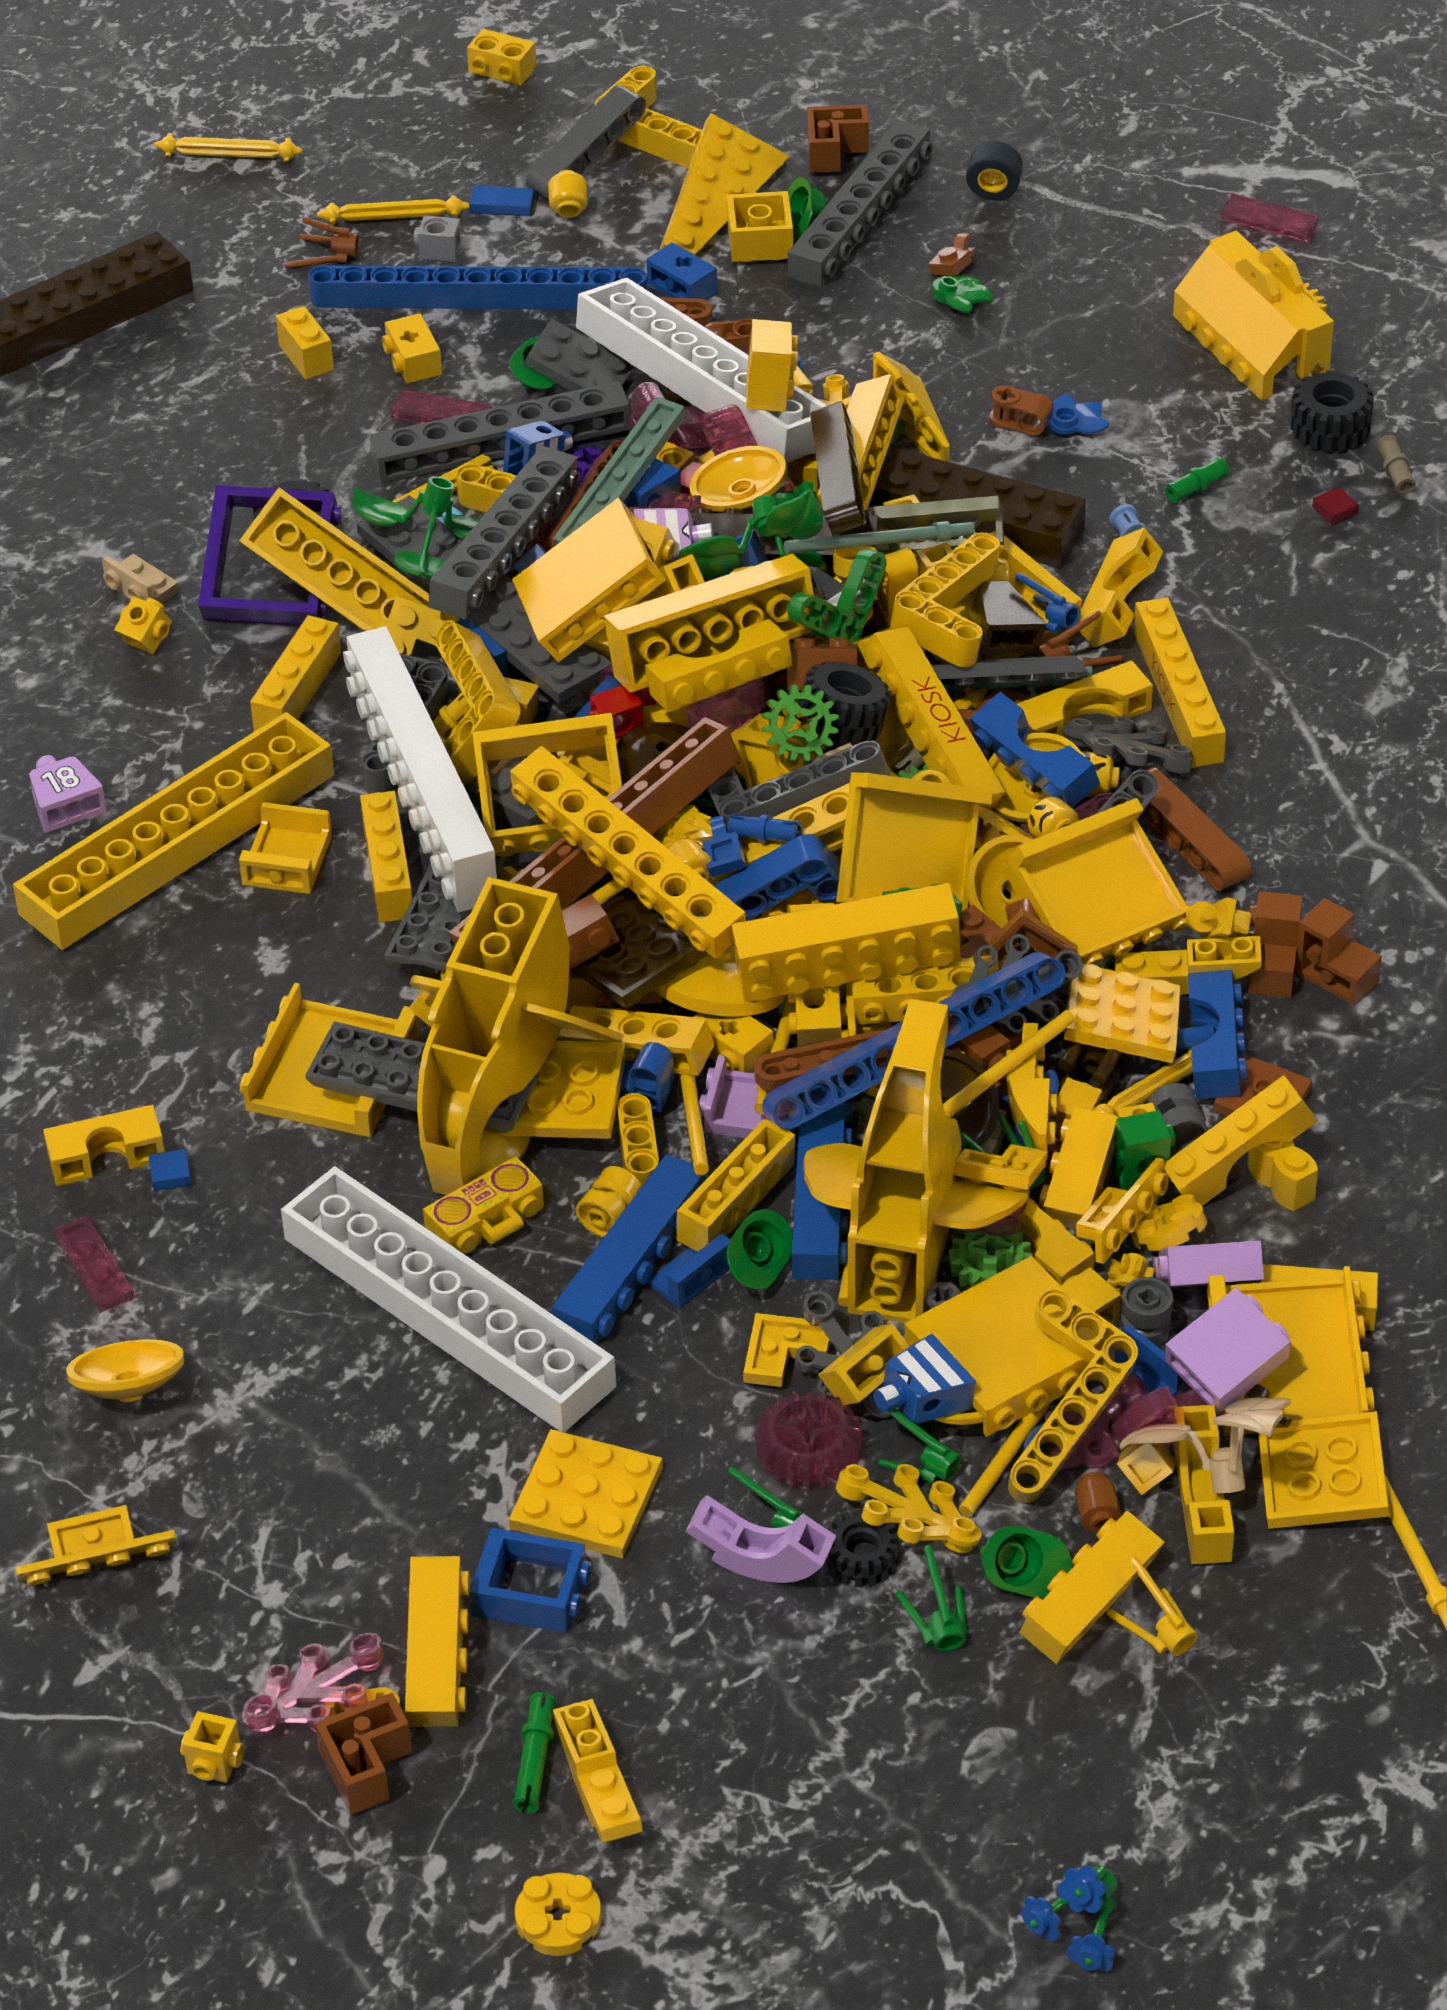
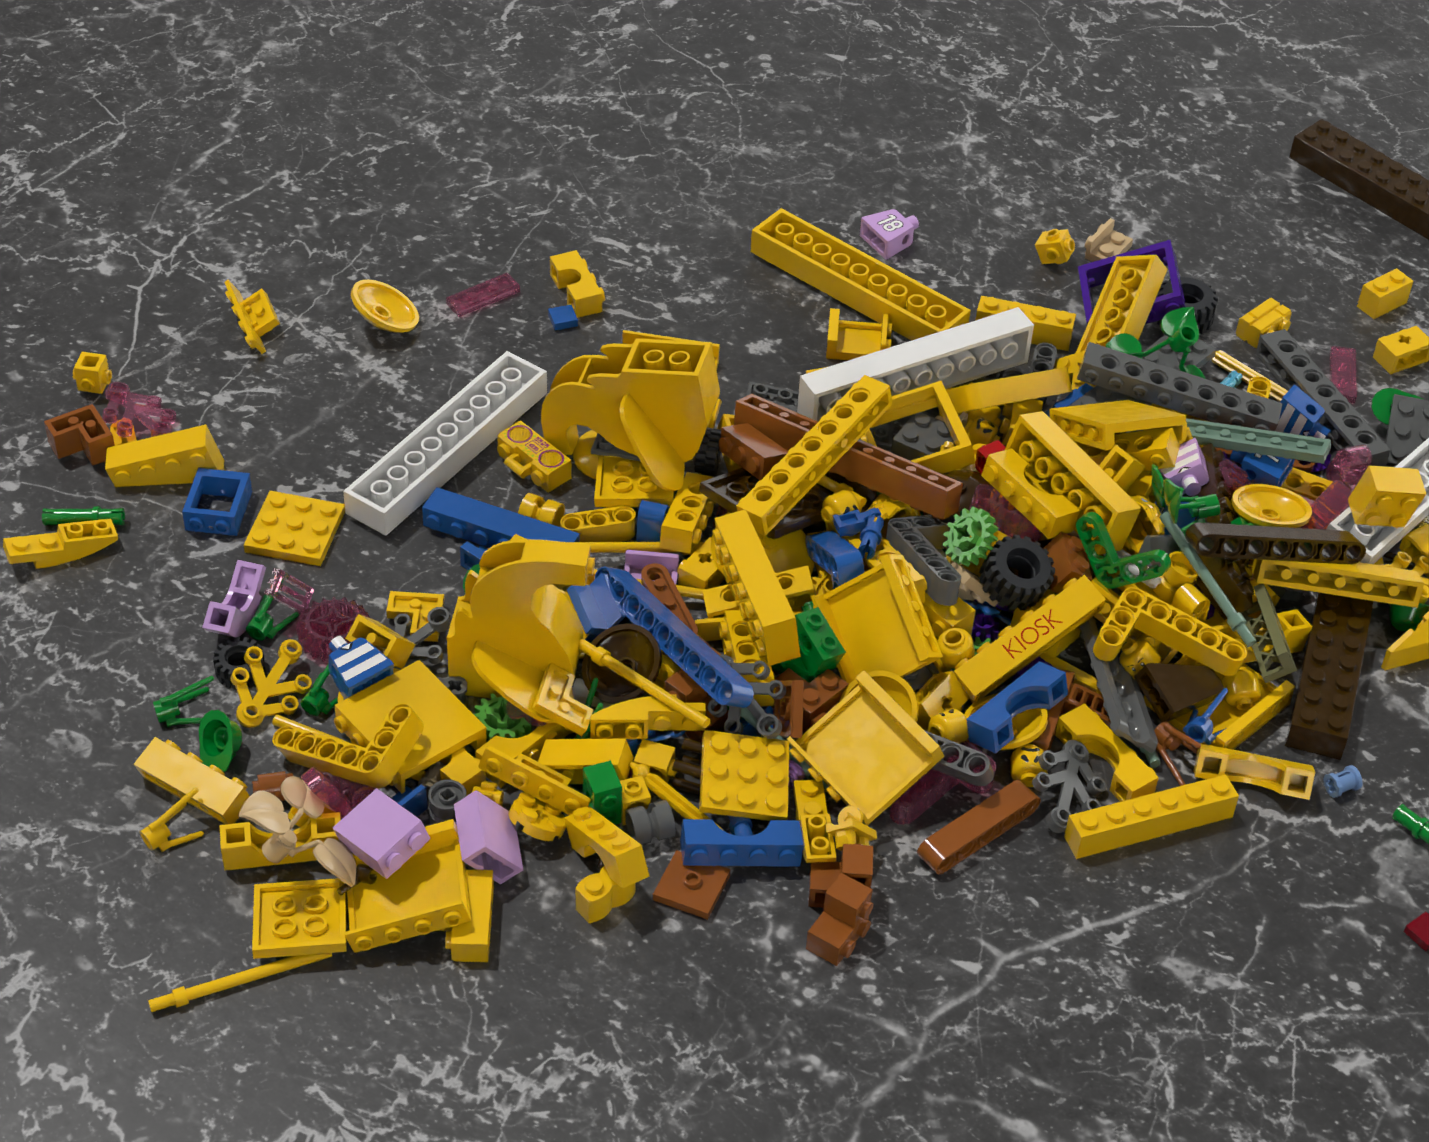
camera: 80 degrees right, 0 degrees up
(337, 458) = (1263, 320): none -> yellow brick
(758, 1472) = (276, 584): none -> clear pink tile
(827, 1123) = (596, 605): none -> blue panel

